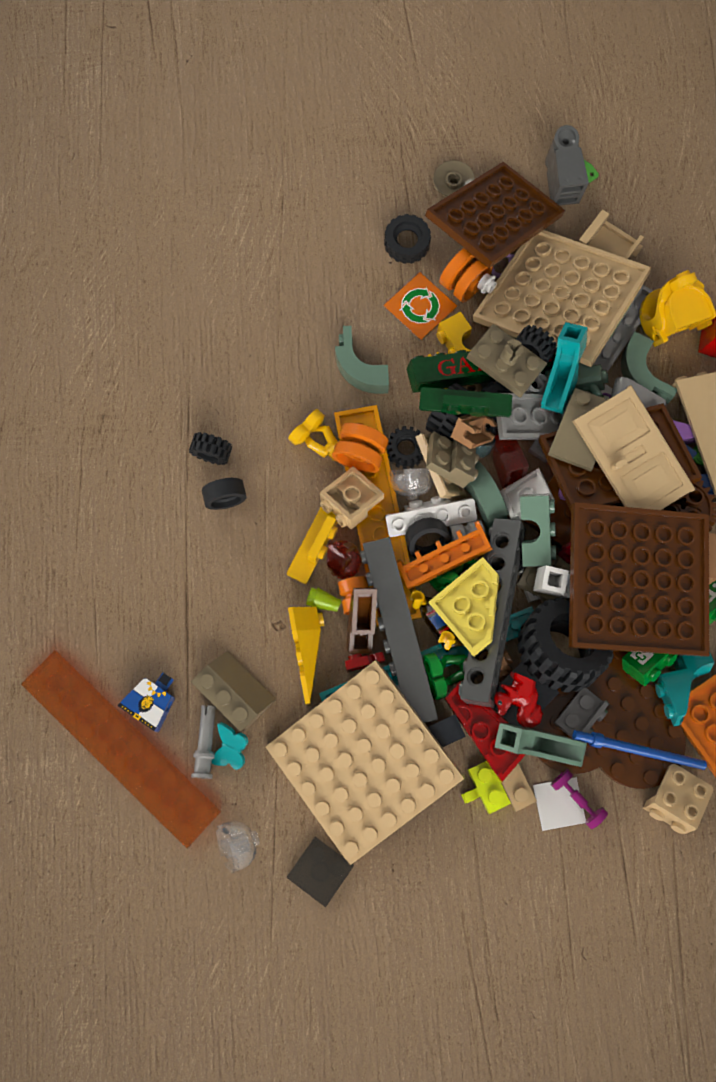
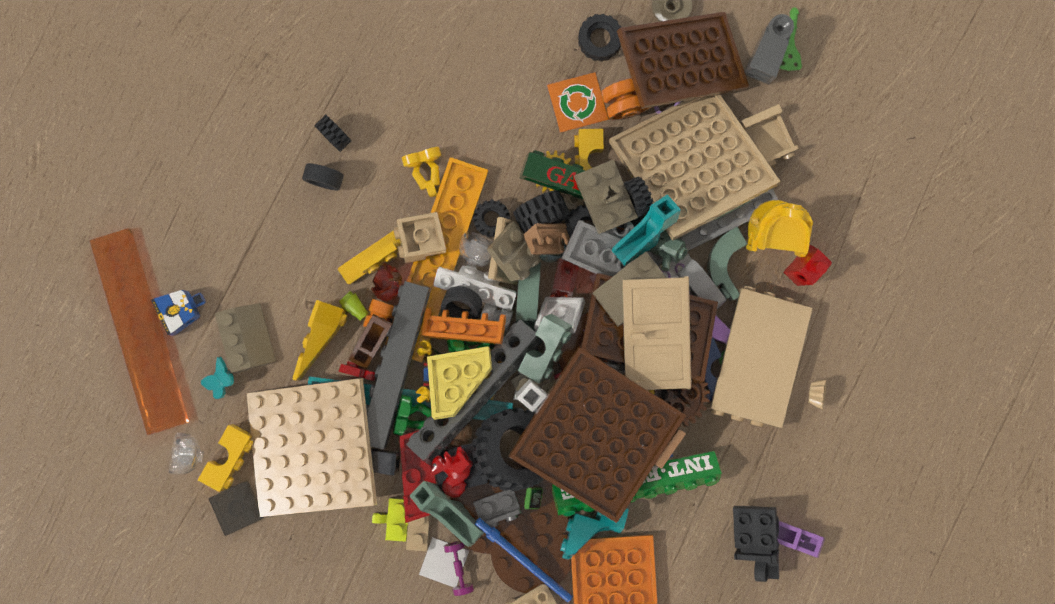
camera: 30 degrees right, 10 degrees up
(204, 754) = (197, 372): light grey pin -> none
(285, 846) = (237, 444): none -> yellow arch
(357, 373) = (492, 139): sand green arch -> none
(360, 447) = (451, 199): orange wheel -> none
(465, 402) = (553, 217): dark green bracket -> none
(487, 283) = (638, 117): white plate -> none
(608, 685) = (533, 498): none -> slope

